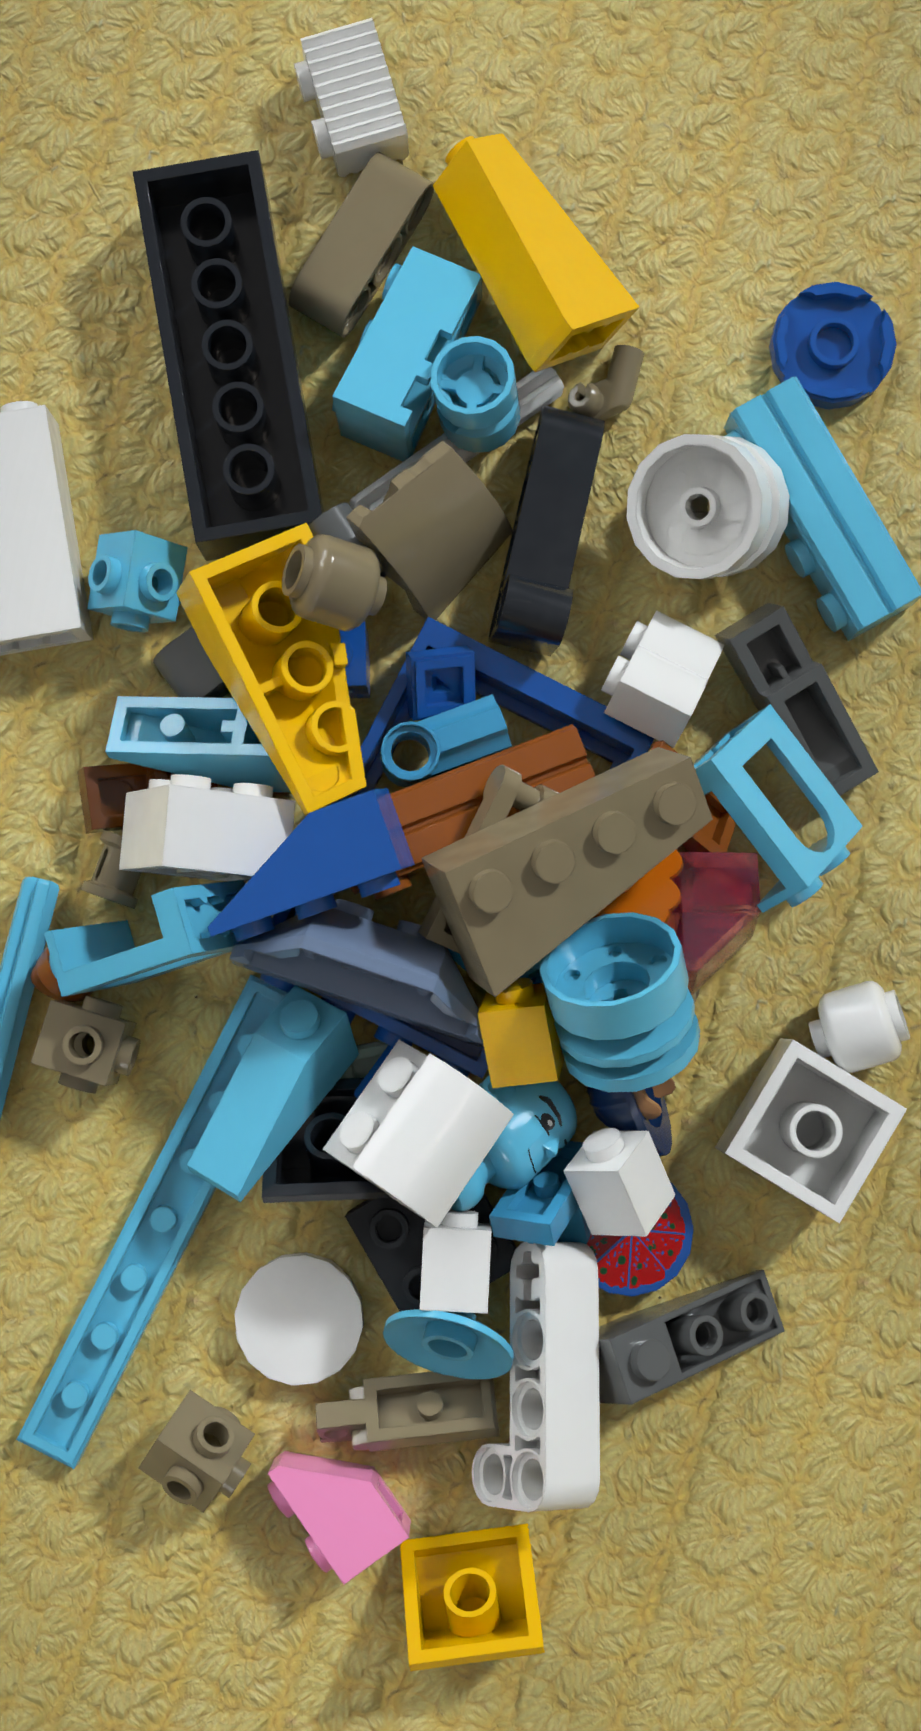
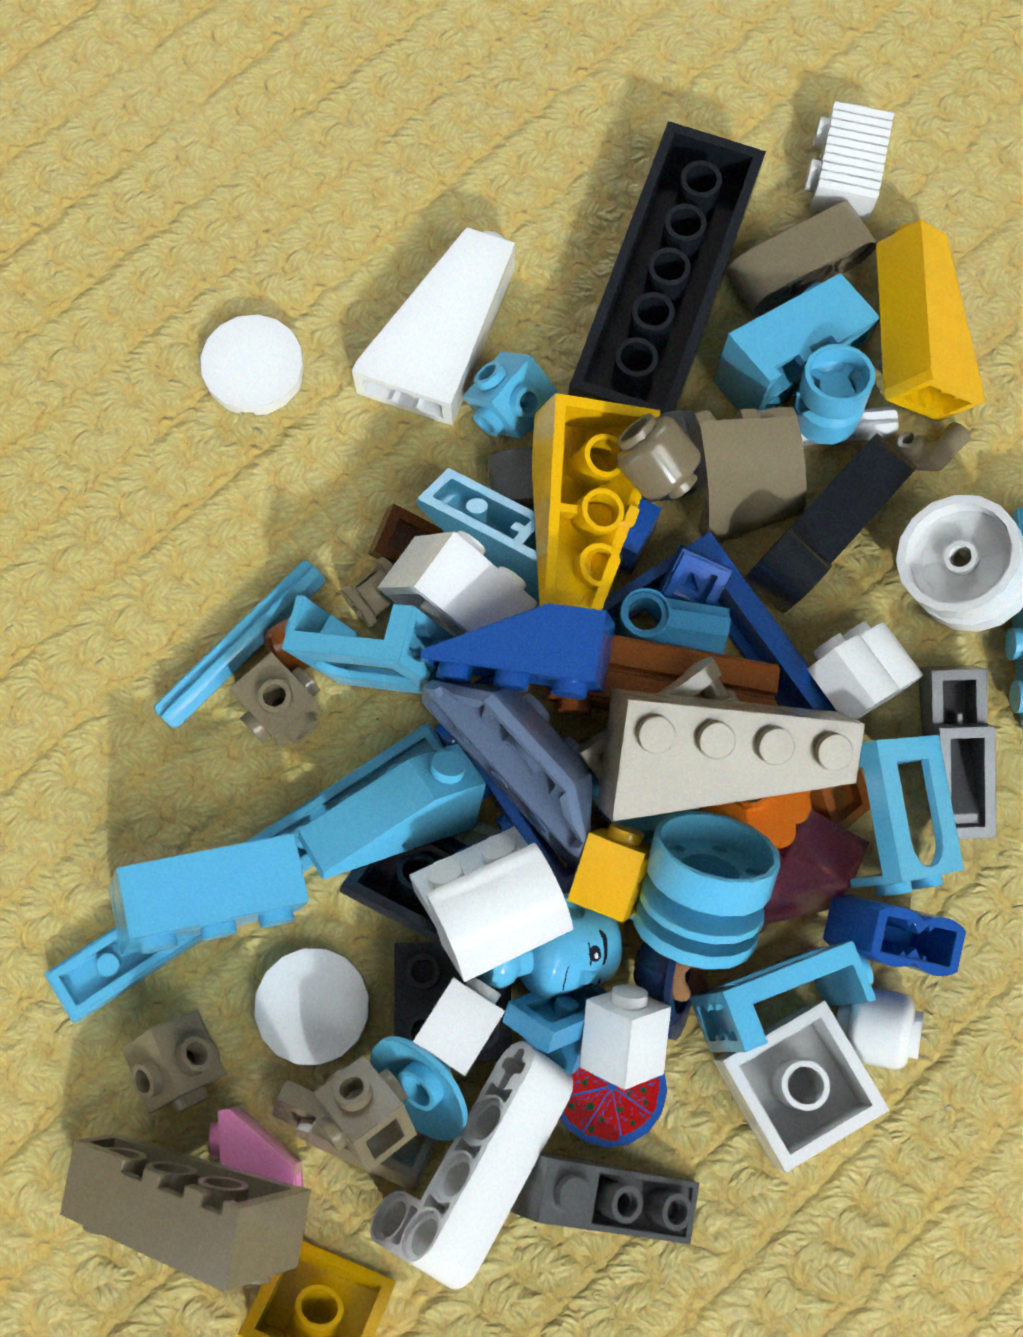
camera: 25 degrees right, 10 degrees down
(135, 1278) = (207, 894): none -> medium azure wedge
(293, 1584) = (186, 1210): none -> dark tan wedge
(410, 1397) = (364, 1113): none -> dark tan brick
(700, 1091) = (728, 1009): none -> medium azure panel
(827, 934) = (896, 934): none -> blue brick

